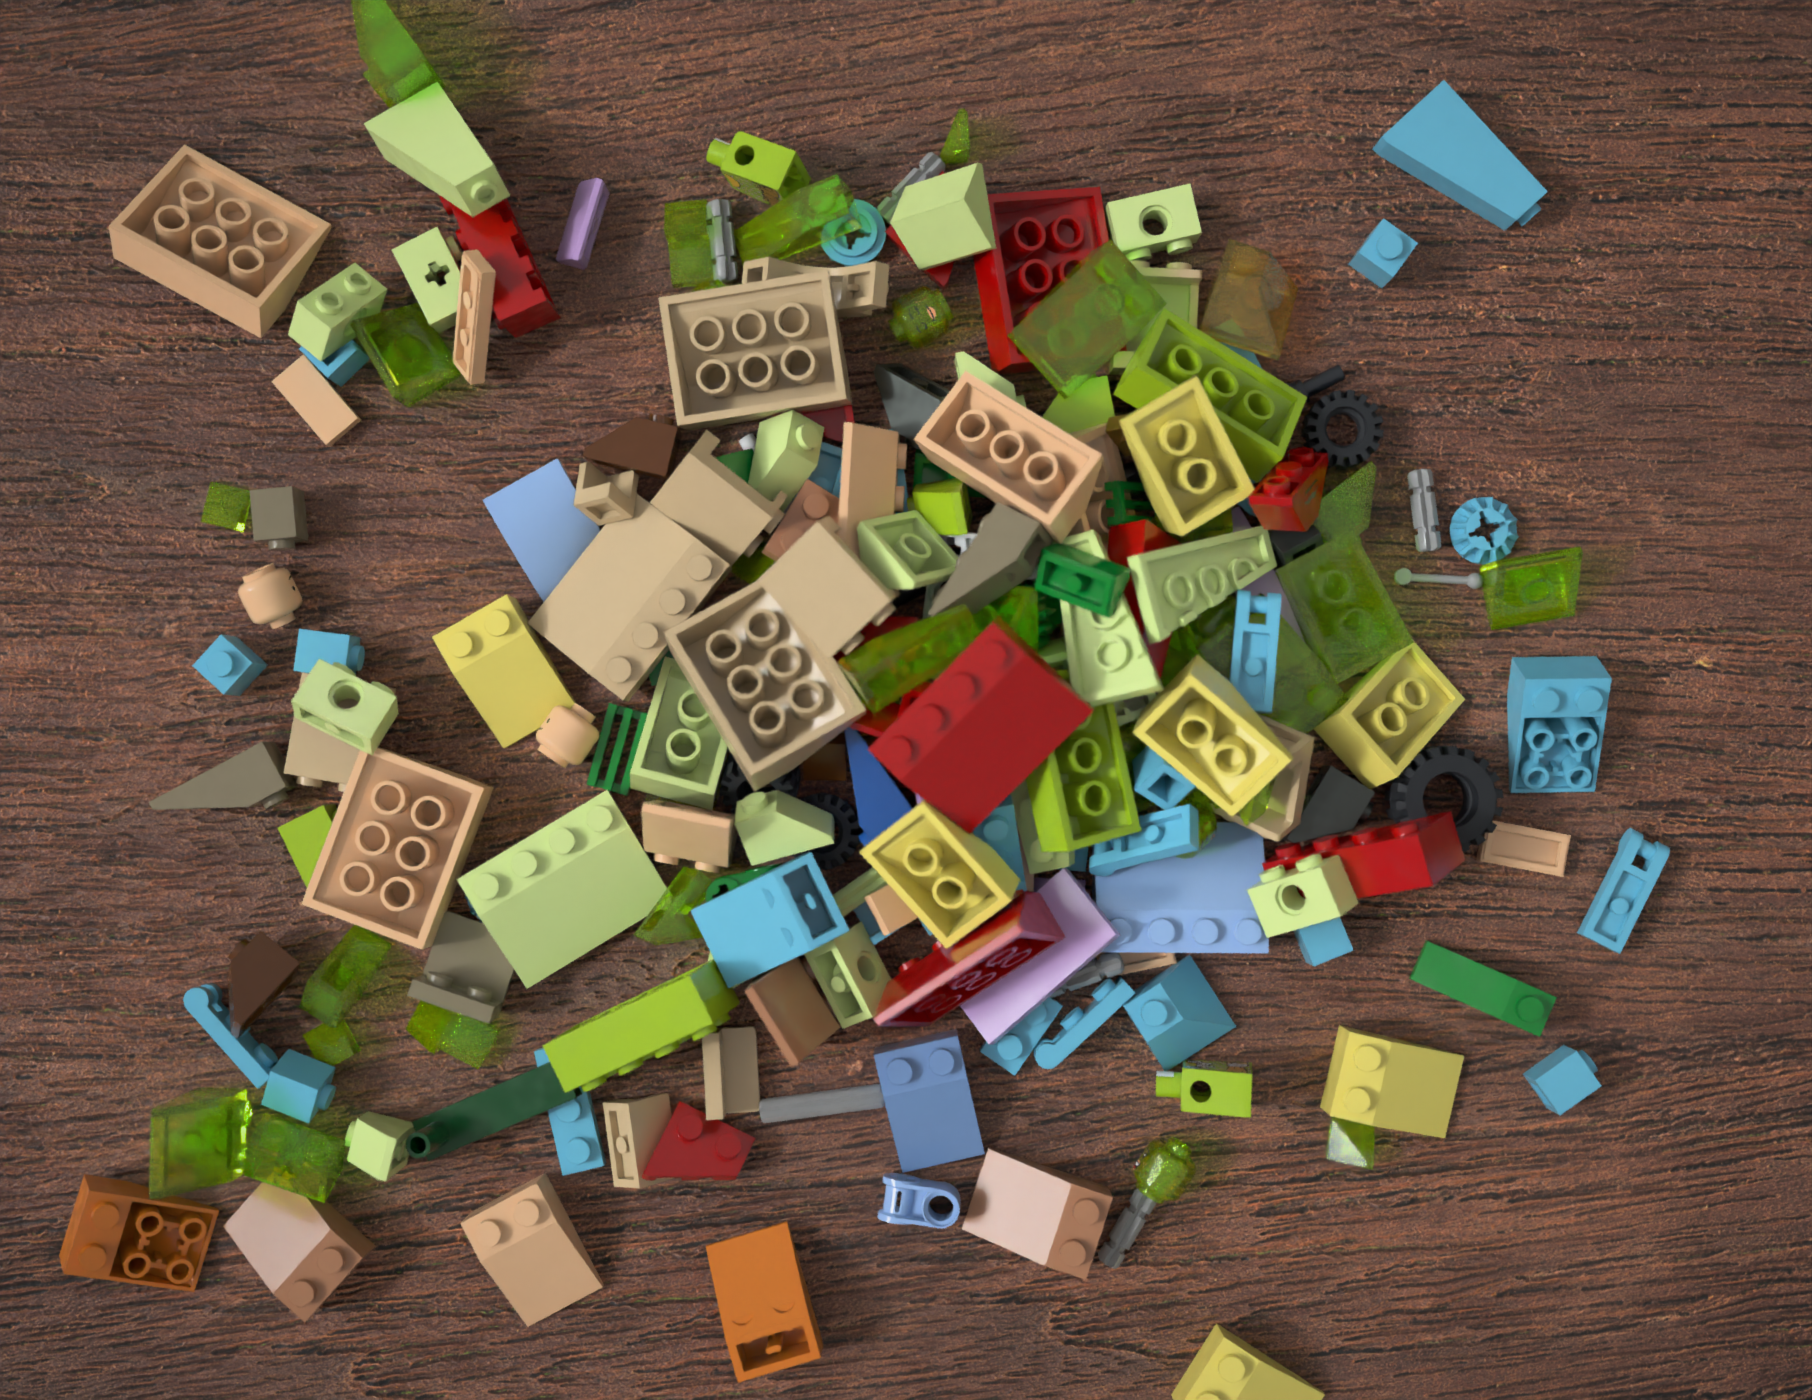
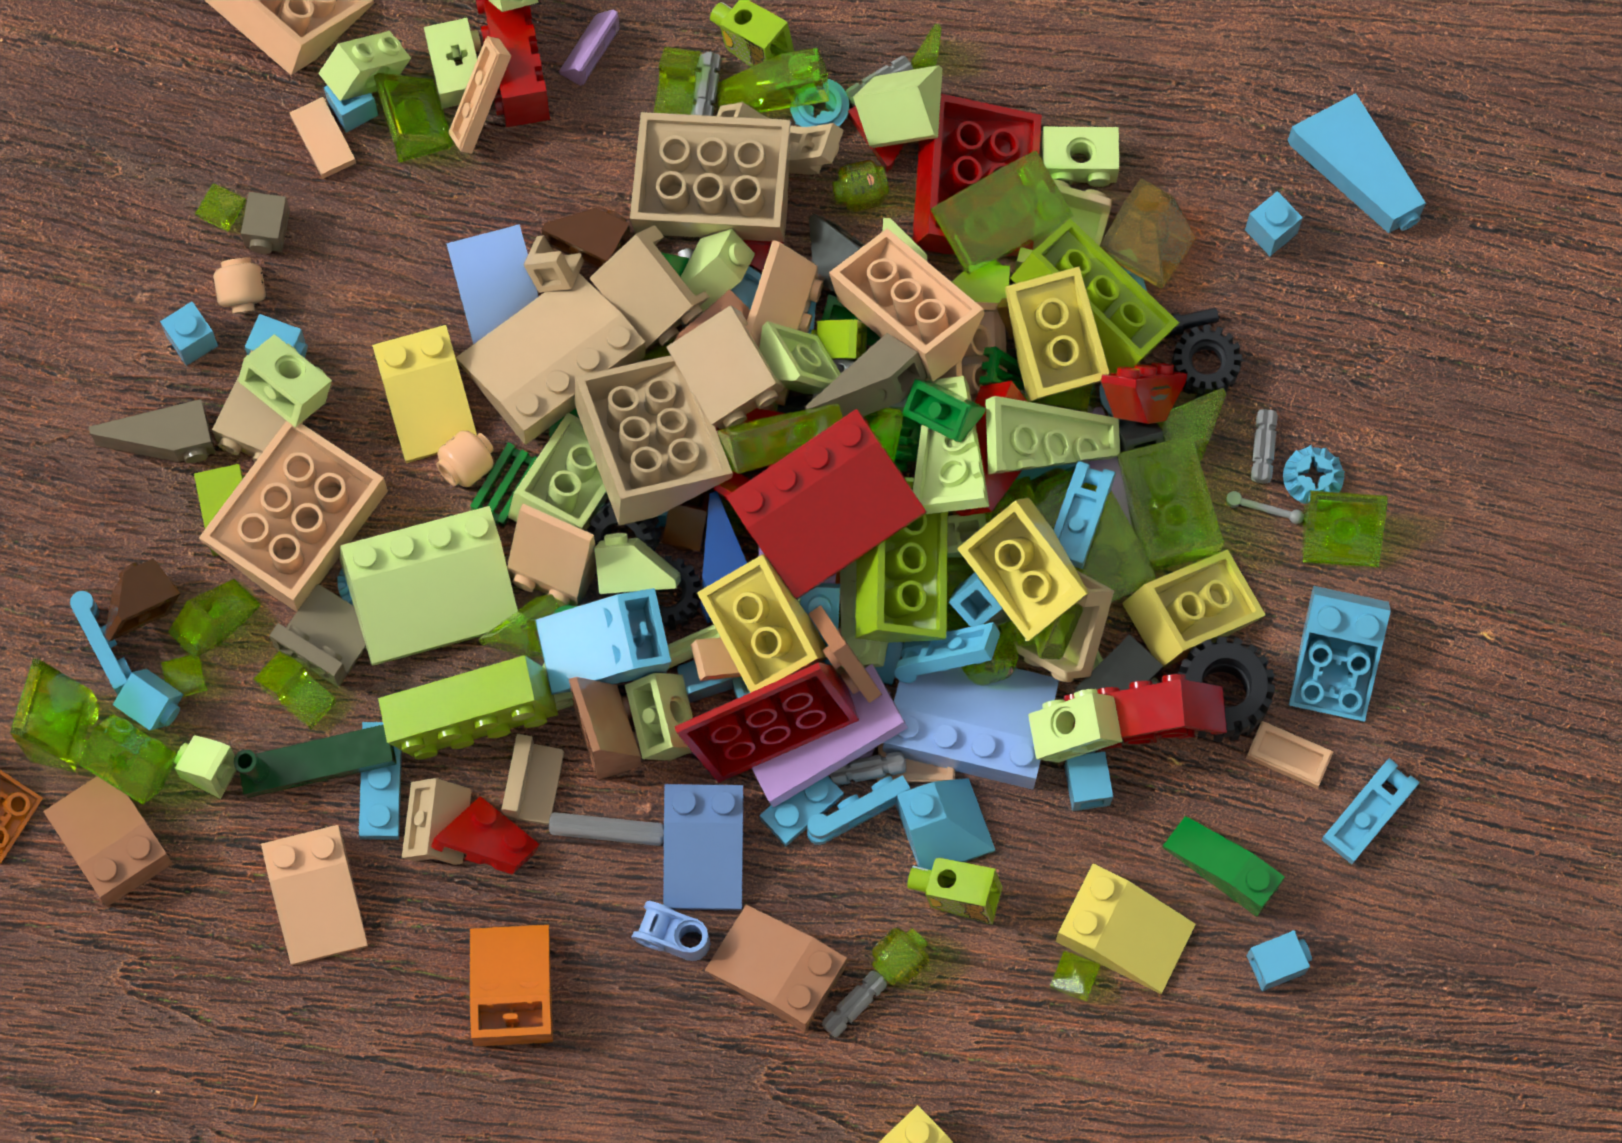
camera: 10 degrees right, 15 degrees down
(1034, 879) = (841, 654): none -> nougat wing

